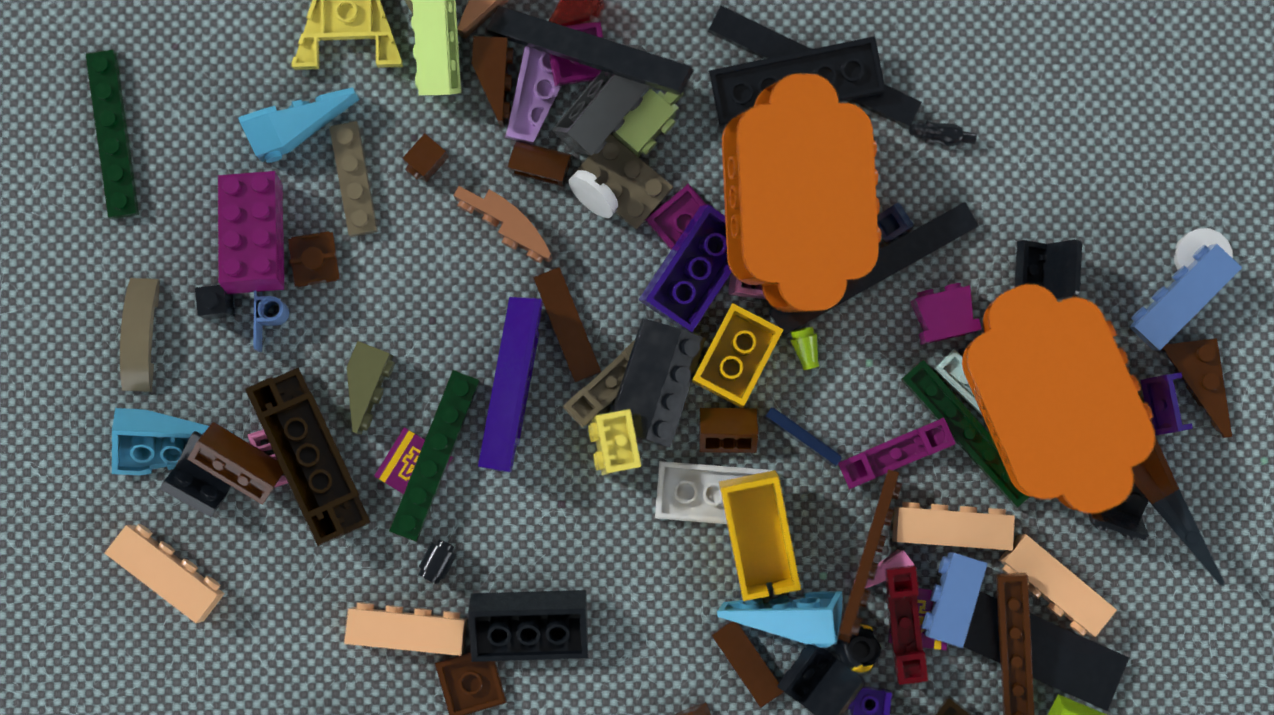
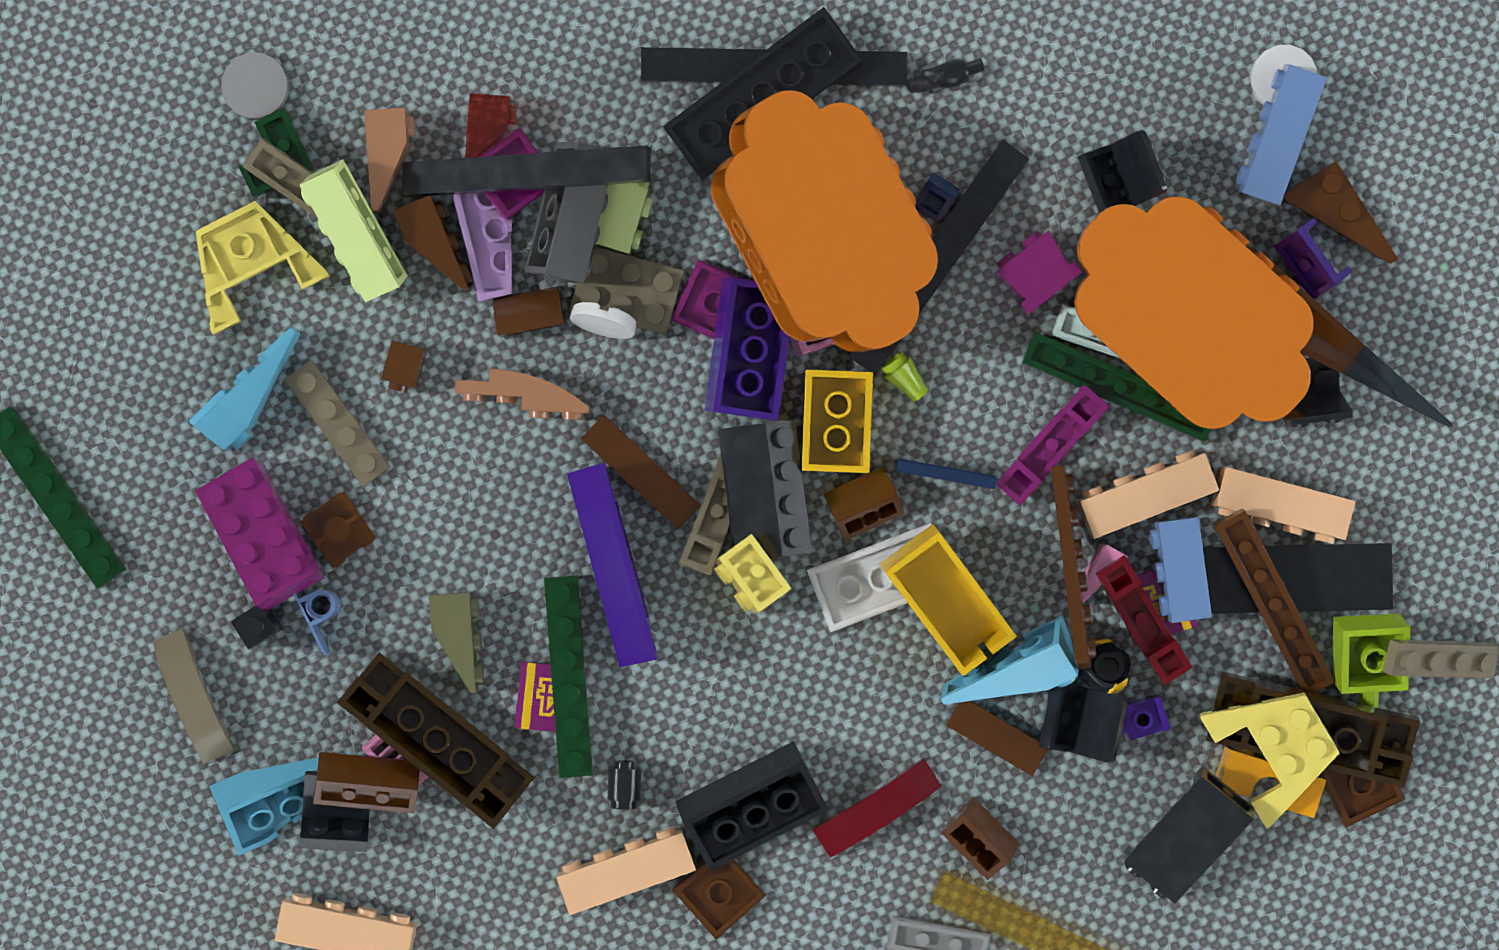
camera: 25 degrees left, 5 degrees up
(626, 675) = (877, 809): none -> dark red slope

